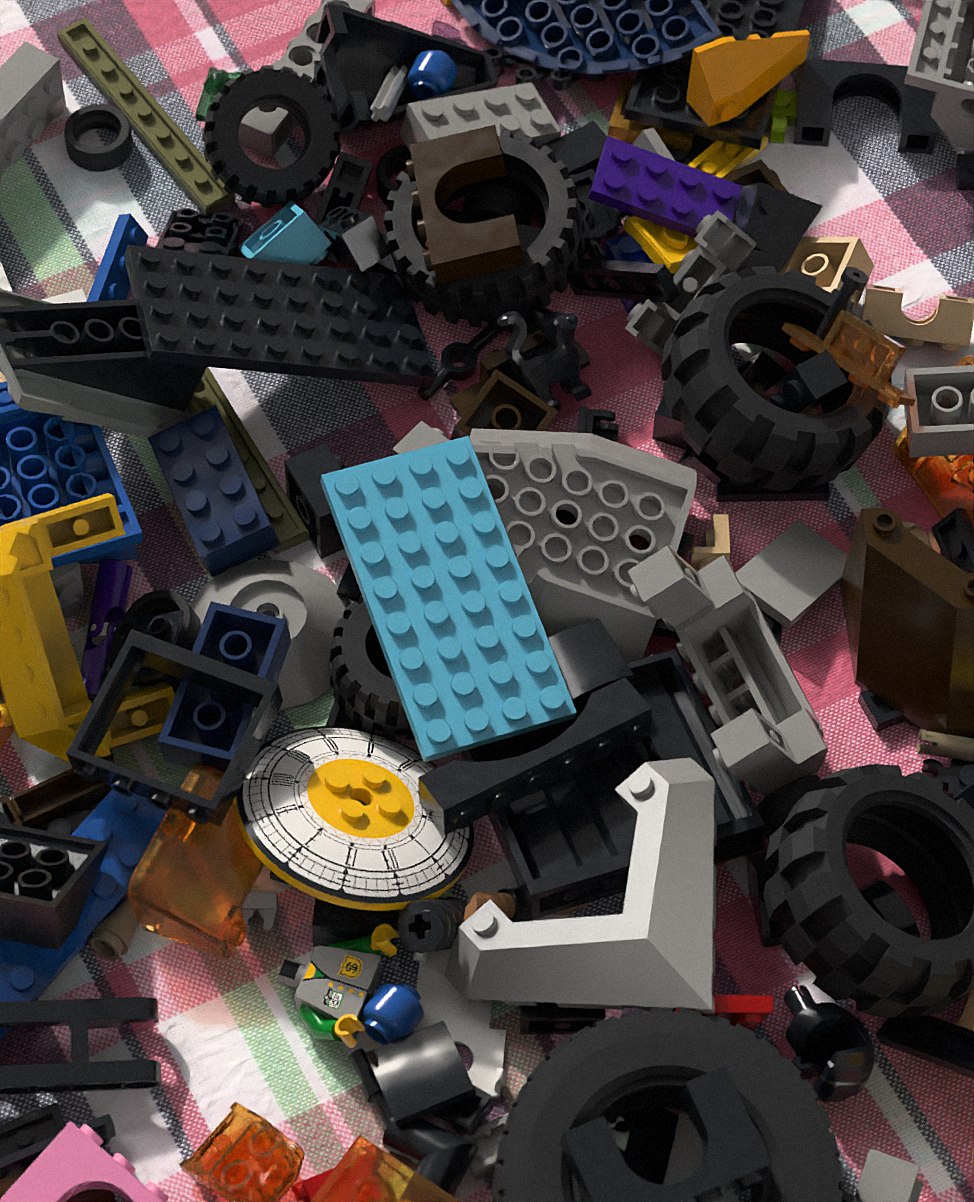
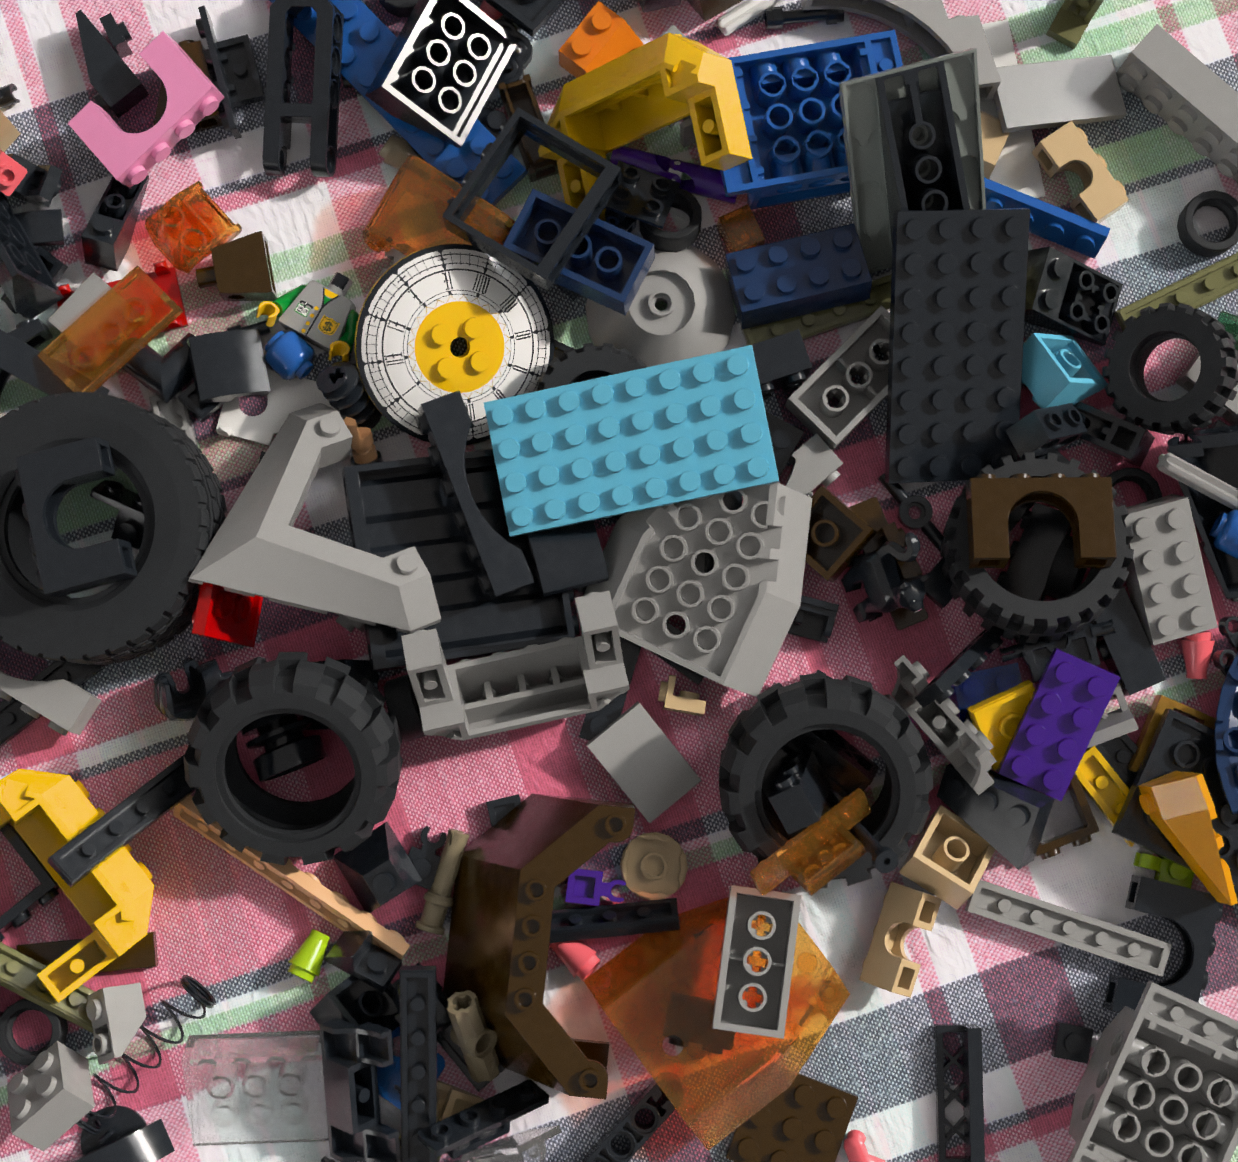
camera: 95 degrees right, 25 degrees up
(78, 233) = (1069, 151): none -> tan arch
(168, 558) = (740, 230): none -> clear orange brick
(290, 1090) = (241, 270): none -> dark brown torso
(313, 411) = (834, 380): none -> light grey brick
(563, 106) = (1197, 654): none -> coral cone
(864, 171) = (1069, 927): none -> light grey plate

